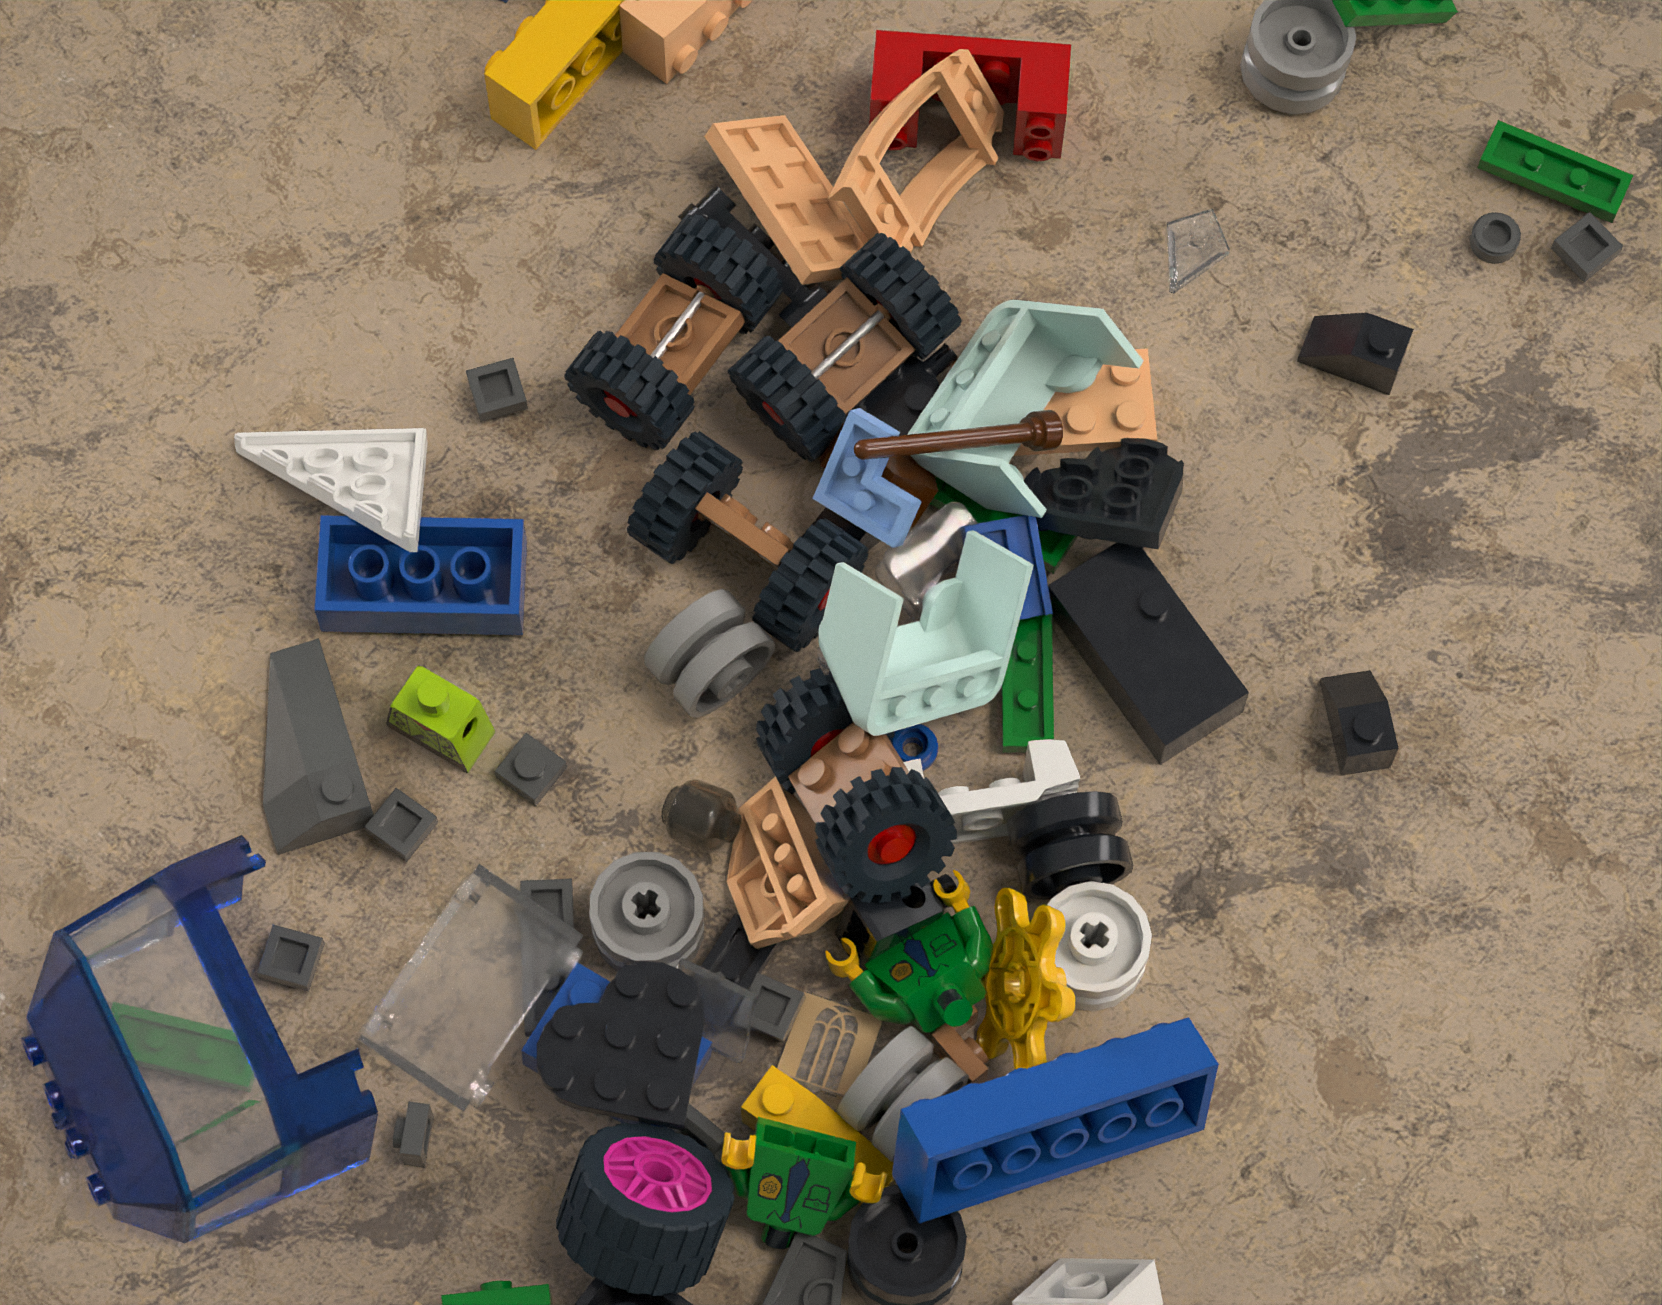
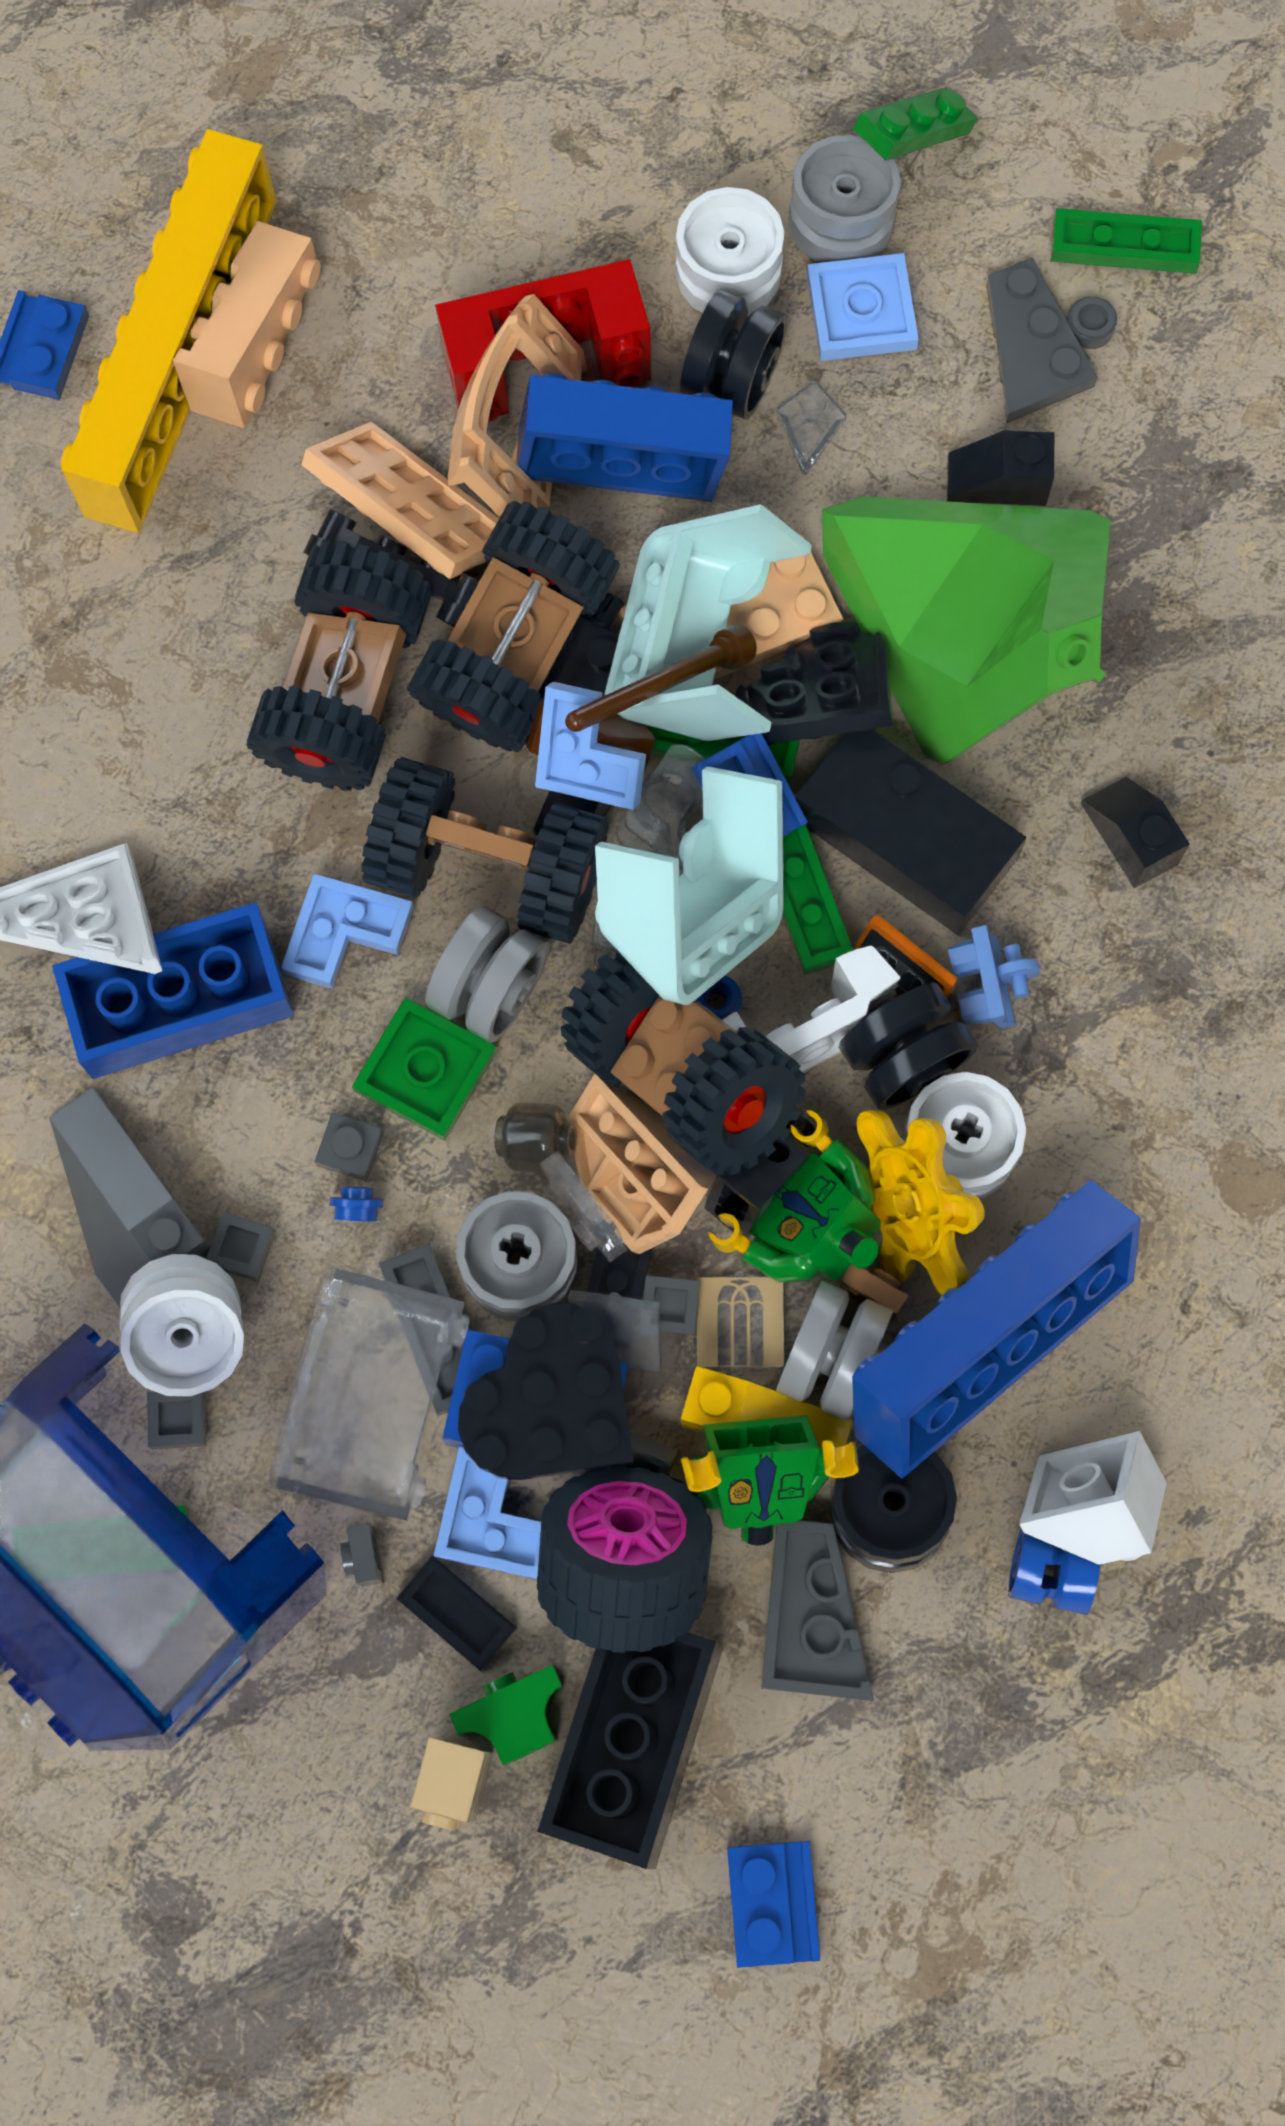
camera: 15 degrees left, 5 degrees up
(324, 873) = (181, 1325): none -> white wheel
(436, 715) = (240, 1127): lime torso -> none
(480, 1216) = (457, 1613): none -> black tile
(496, 389) = (183, 781): dark grey plate -> none
(518, 821) = (356, 1204): none -> blue plate
(525, 1145) = (478, 1531): none -> light blue plate
(590, 557) = (339, 914): none -> light blue plate
(623, 721) = (424, 1068): none -> green plate
(724, 908) = (592, 1224): none -> clear plate
(1009, 206) = (624, 437): none -> blue brick
(1098, 768) = (905, 958): none -> slope
(1140, 161) = (734, 352): none -> black wheel
(1172, 66) = (730, 244): none -> white wheel
(1181, 814) = (984, 956): none -> medium blue hips
(1273, 461) = (973, 606): none -> bright green panel
(1281, 154) = (862, 307): none -> light blue plate
(1433, 239) = (1034, 342): none -> dark grey wing
(1587, 247) = (1182, 303): dark grey plate -> none

